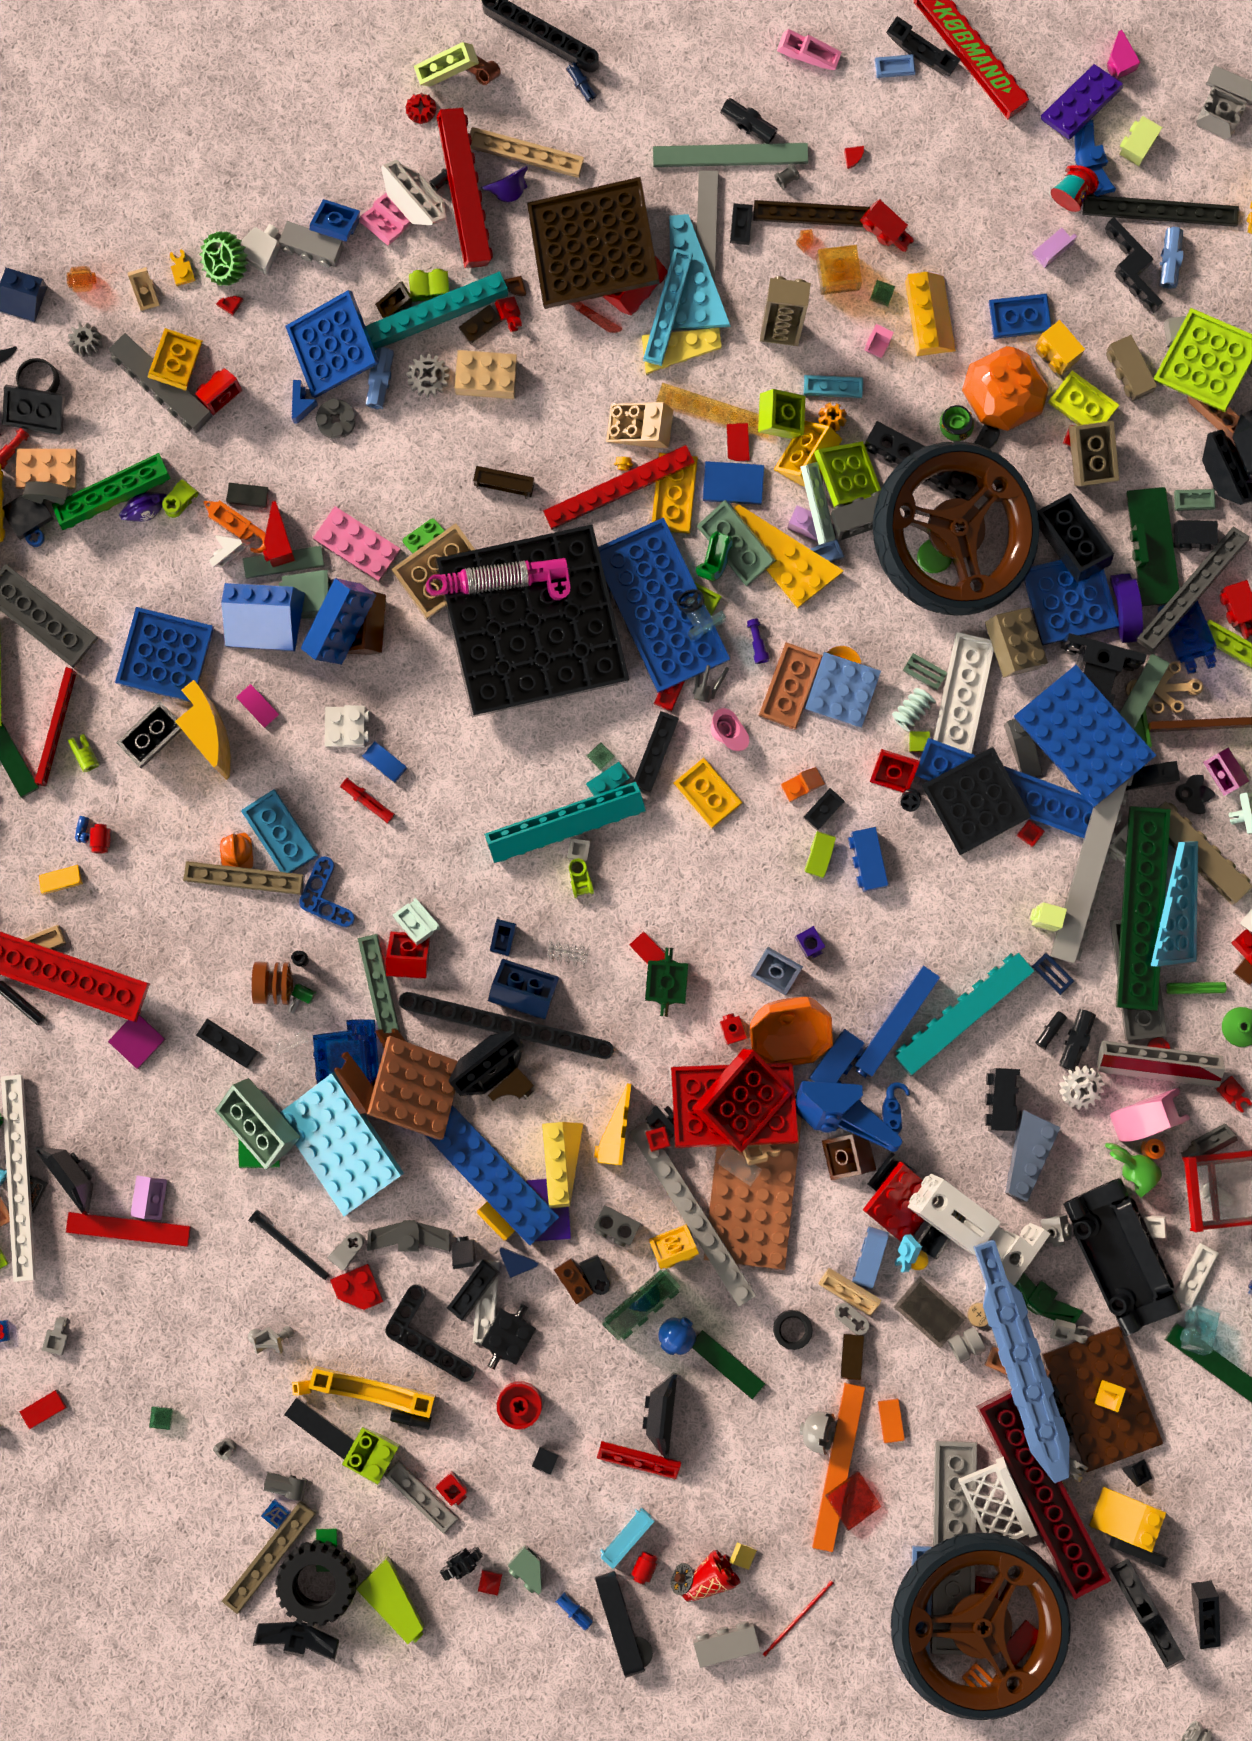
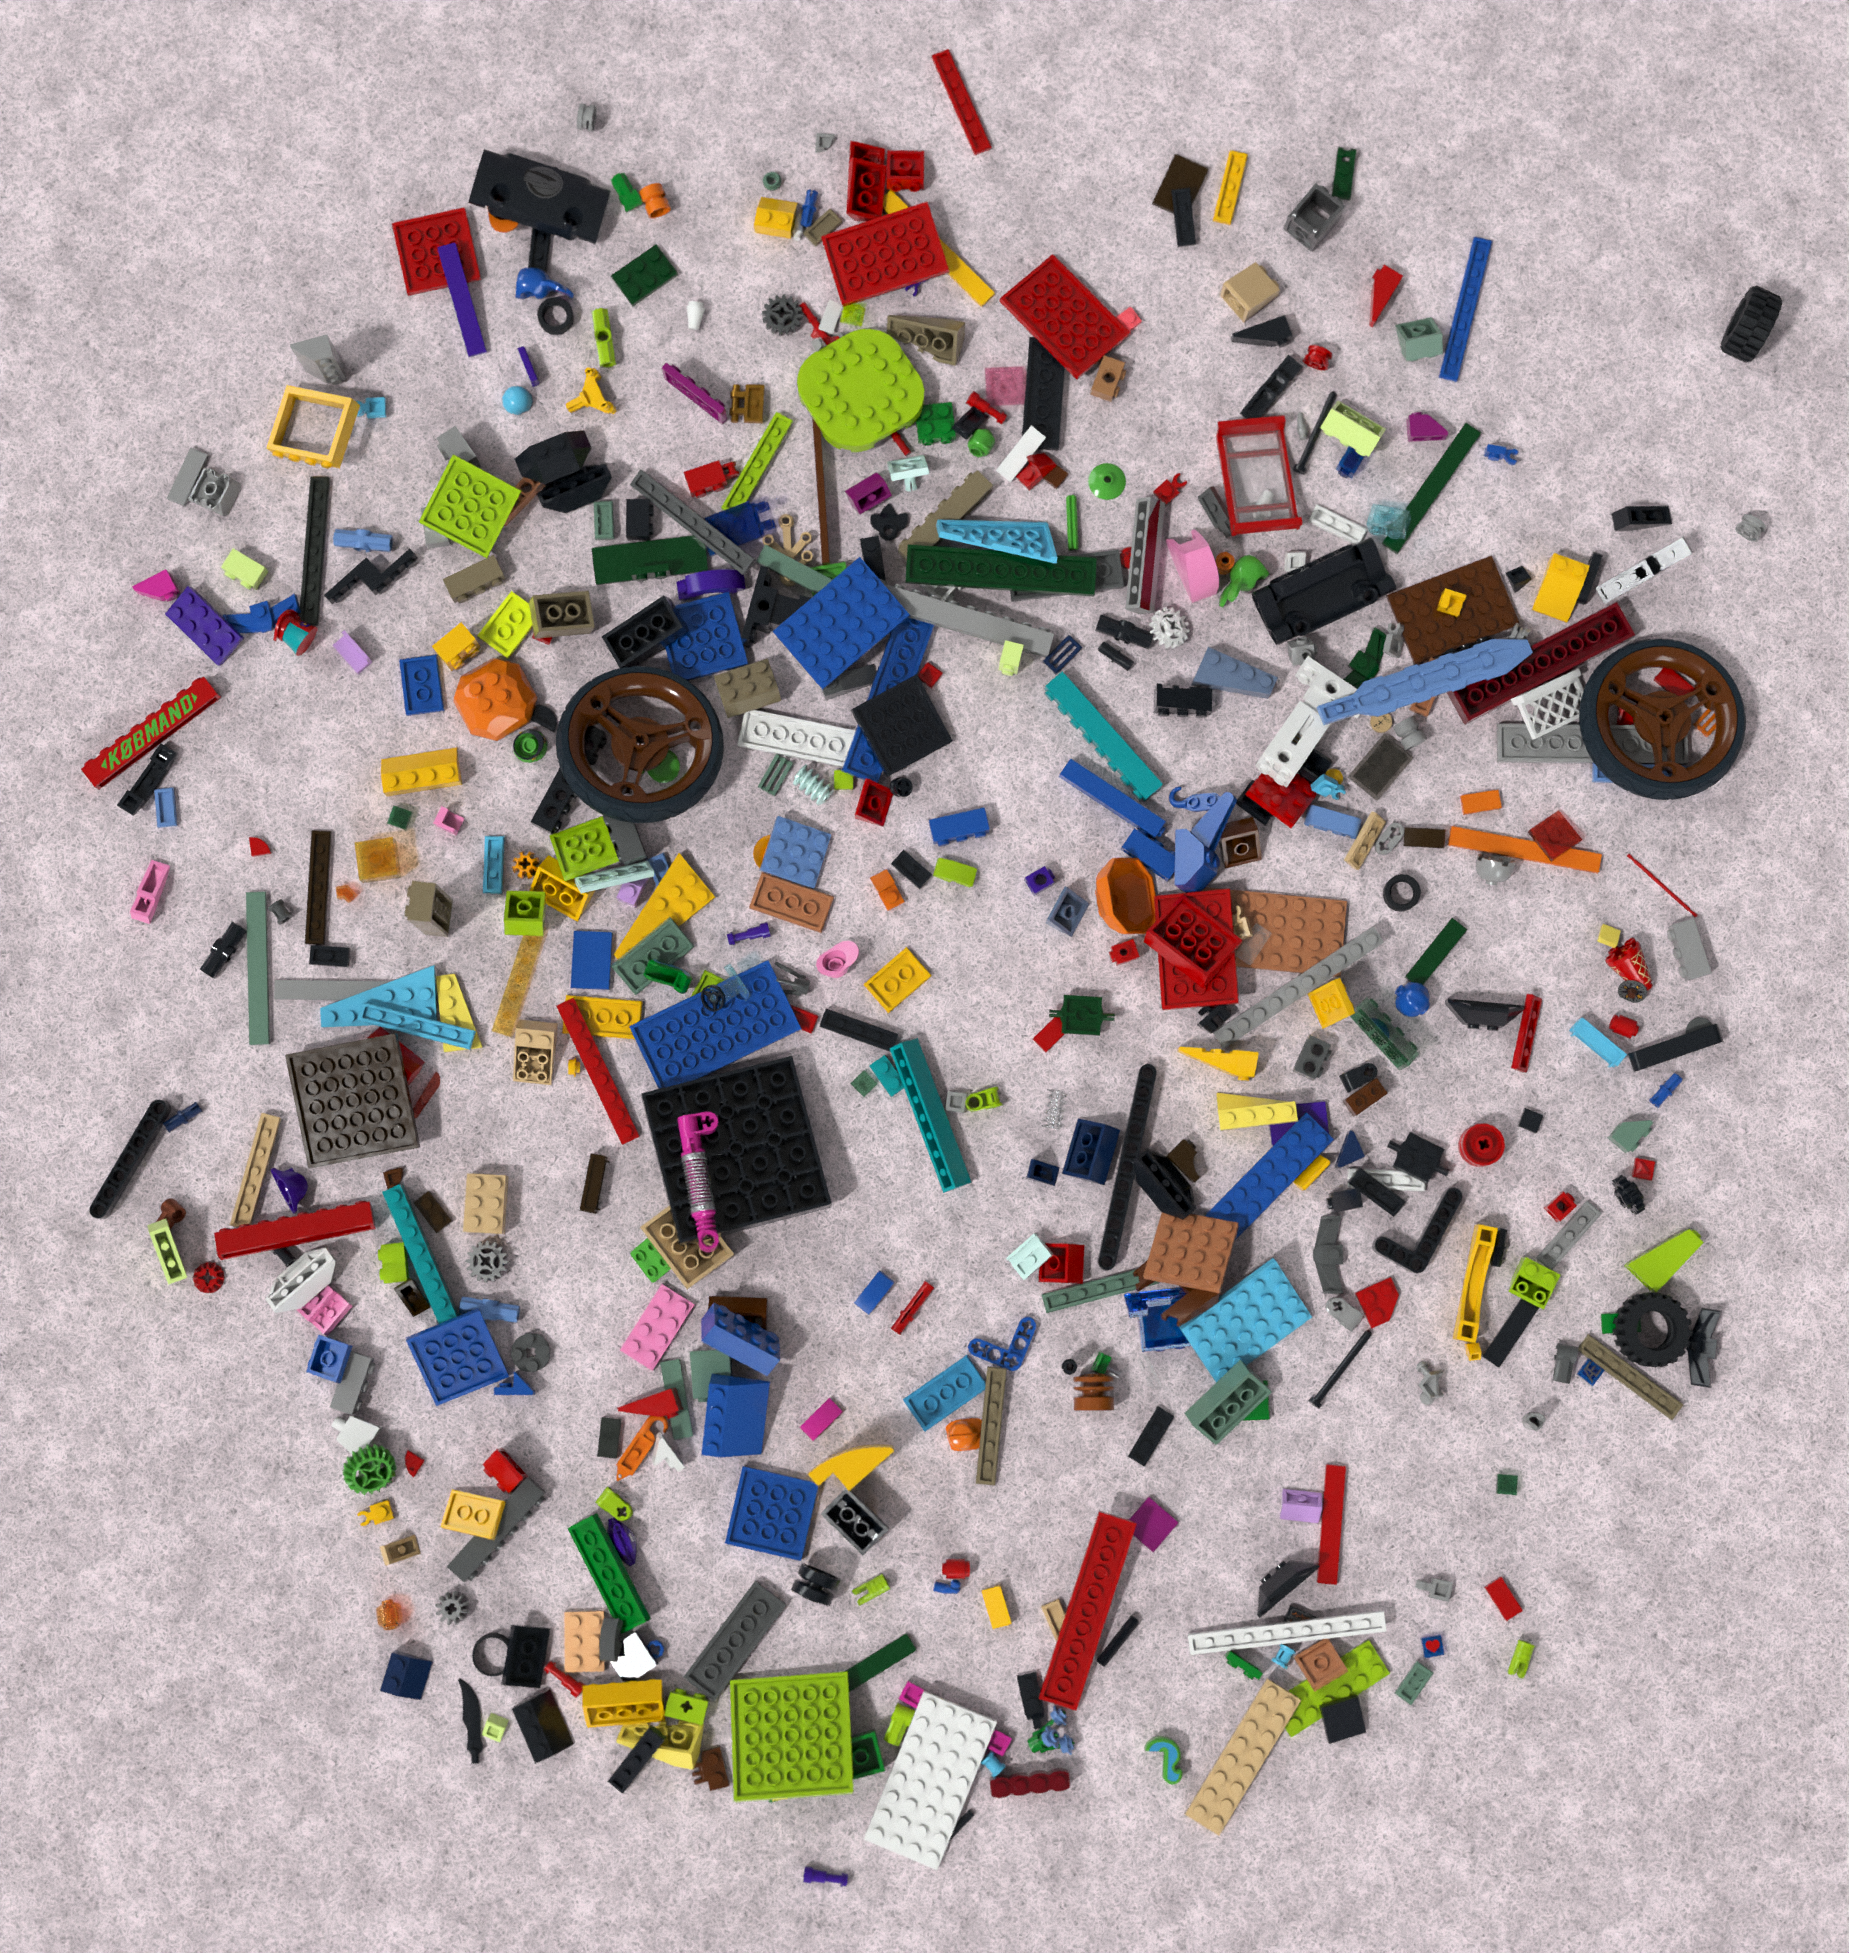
camera: 90 degrees left, 0 degrees up
(55, 727) = (846, 1618): red tile -> none
(89, 695) = (814, 1587): none -> black wheel
(346, 726) = (840, 1331): white plate -> none
(509, 311) = (419, 1182): red plate -> none
(657, 1139) = (1230, 1020): red tile -> none
(738, 442) = (550, 956): red sticker -> none
(886, 226) = (332, 814): red brick -> none

